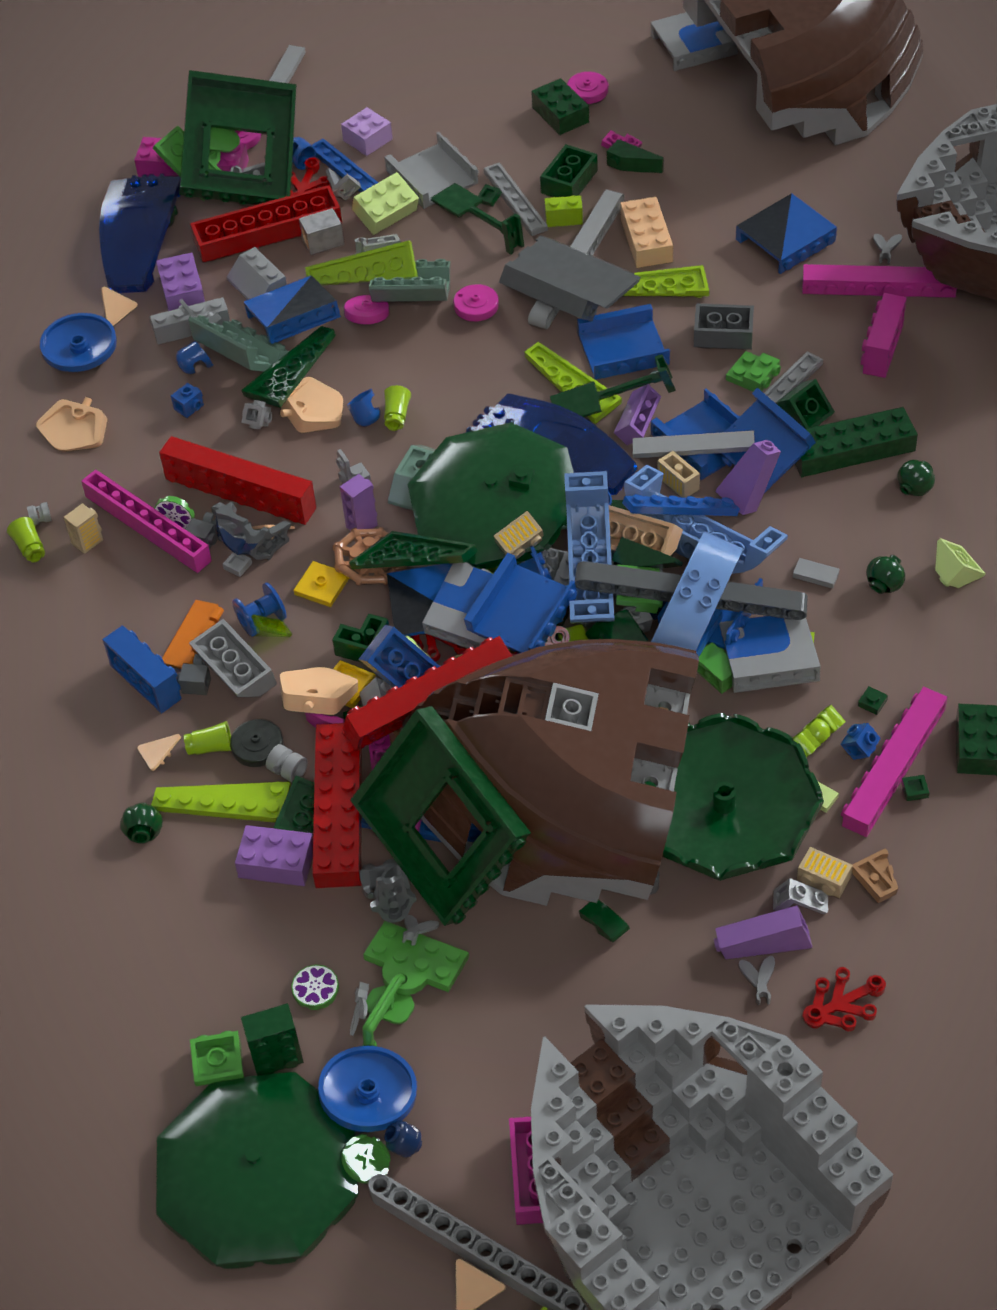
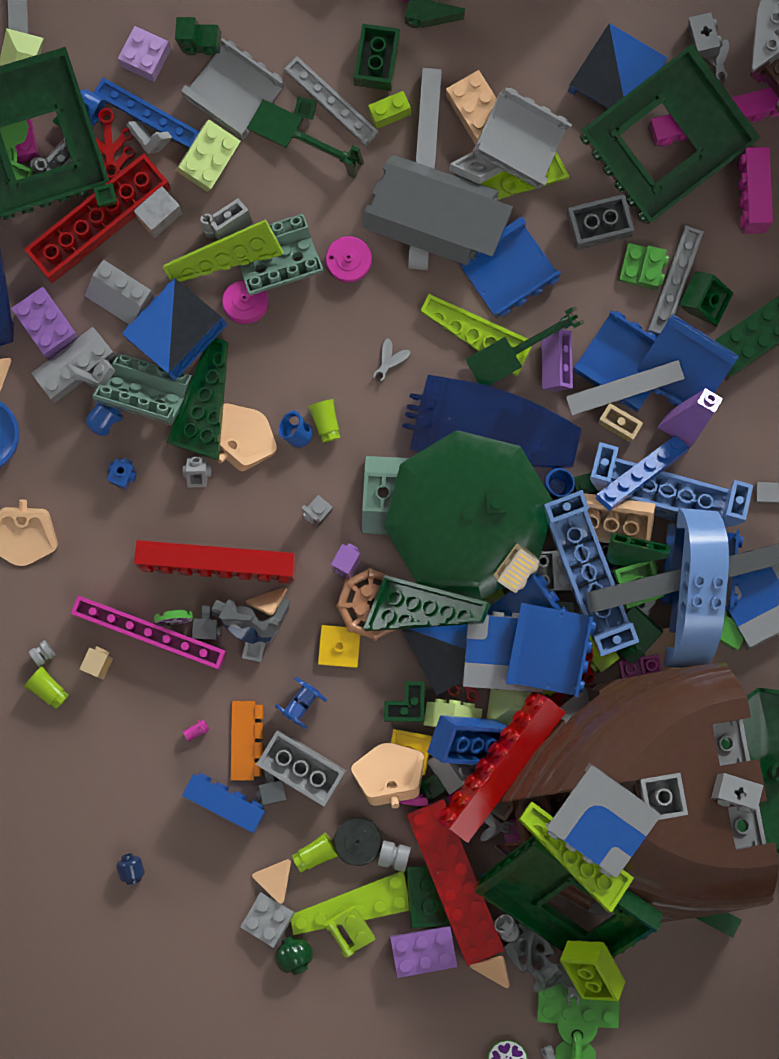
camera: 20 degrees left, 30 degrees up
(22, 702) = (130, 869): none -> dark blue head
(132, 784) = (267, 920): none -> light grey plate
(148, 611) = (196, 730): none -> dark pink pin
(215, 813) = (354, 926): none -> lime plate
(270, 627) = (318, 715): clear neon green slope -> none
(279, 200) = (105, 195): none -> dark green plate
(340, 894) = (494, 969): none -> light nougat piece
(370, 853) = (507, 928): none -> light grey wheel
(415, 129) = (197, 37): none -> dark green brick
(441, 903) = (592, 970): none -> lime brick
(465, 746) = (603, 888): none -> lime wing
(478, 383) = (388, 360): none -> light grey piece
(494, 697) = (603, 821): none -> light grey panel
(623, 262) = (474, 168): none -> light grey plate
(651, 725) = (748, 792): none -> light grey brick
(674, 245) = (521, 137): none -> light grey panel
(848, 255) = (701, 111): none -> dark green panel
(879, 223) = (704, 35): none -> light grey brick

